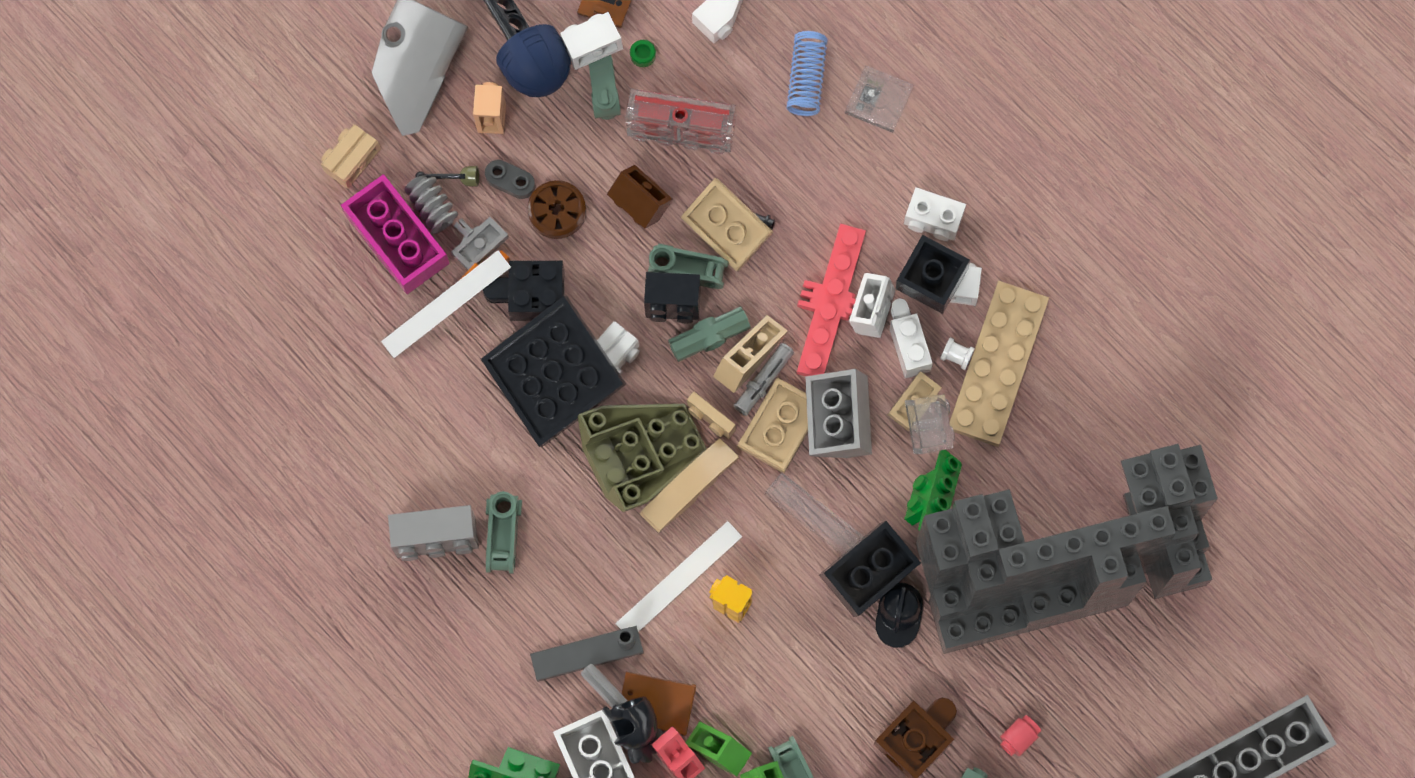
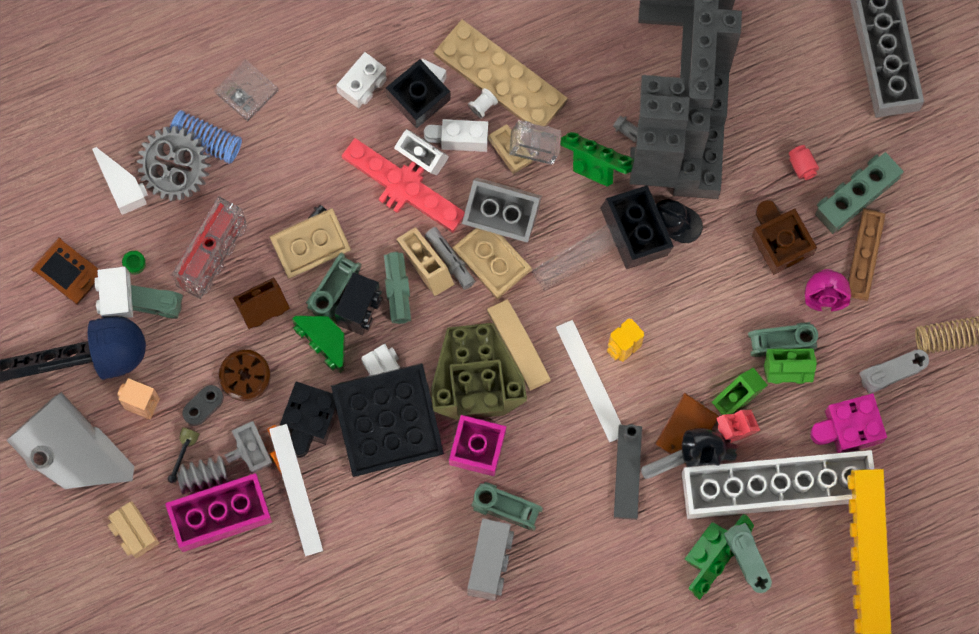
camera: 75 degrees left, 0 degrees up
(557, 478) = (477, 445): none -> dark pink brick
(624, 277) = (323, 338): none -> green slope
(718, 422) = (473, 305): tan plate -> none
(763, 51) = (168, 182): none -> light grey gear

